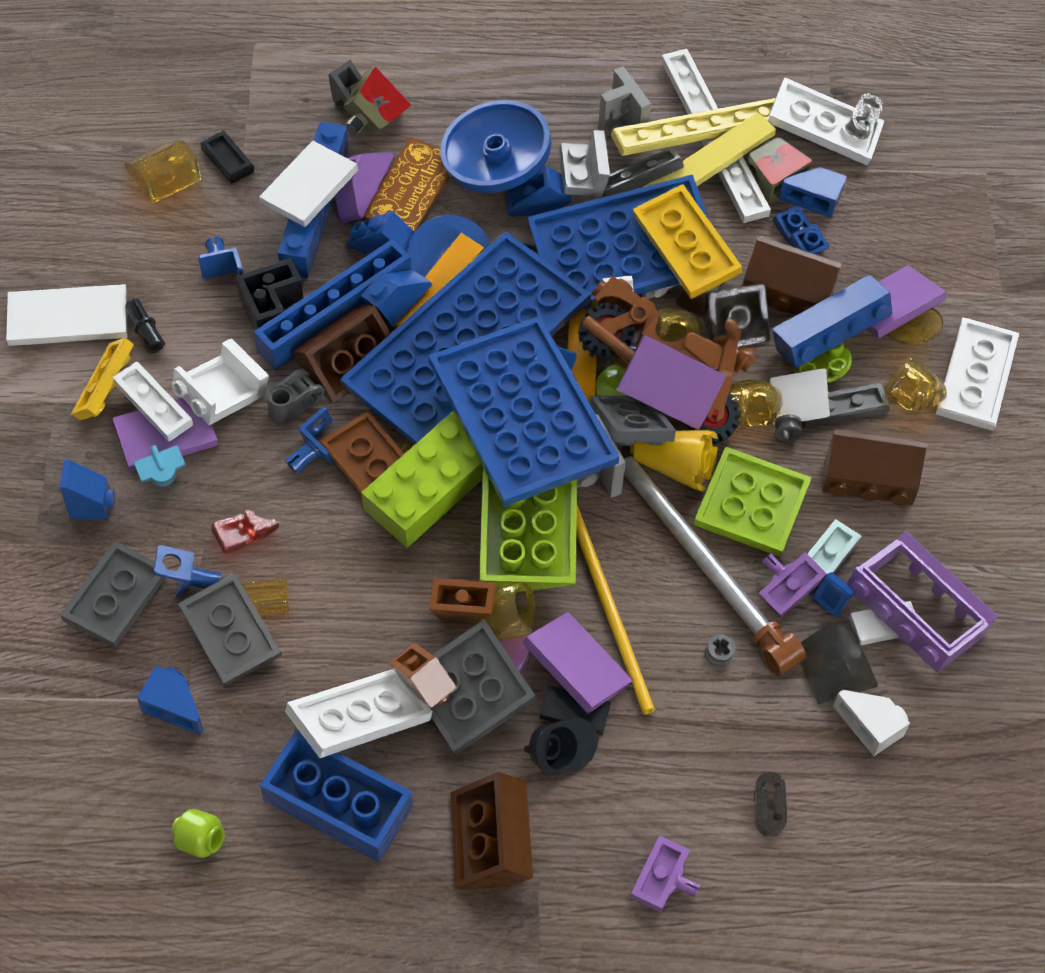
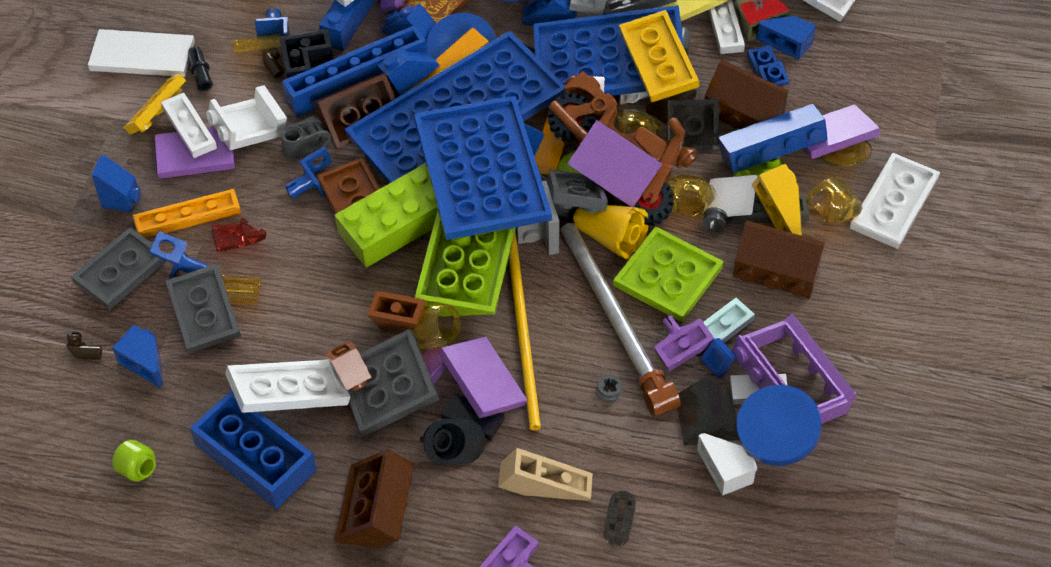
camera: 15 degrees right, 5 degrees down
(92, 703) = (80, 349): none -> dark brown arm
(160, 466) = (181, 175): medium azure piece -> none
(176, 512) = (187, 213): none -> light orange tile
(205, 283) = (256, 43): none -> clear yellow tile
(229, 308) = (270, 61): none -> dark brown arm
(675, 771) = (543, 477): none -> tan slope
(860, 396) = (780, 198): none -> yellow slope
(926, 668) = (779, 425): none -> blue piece

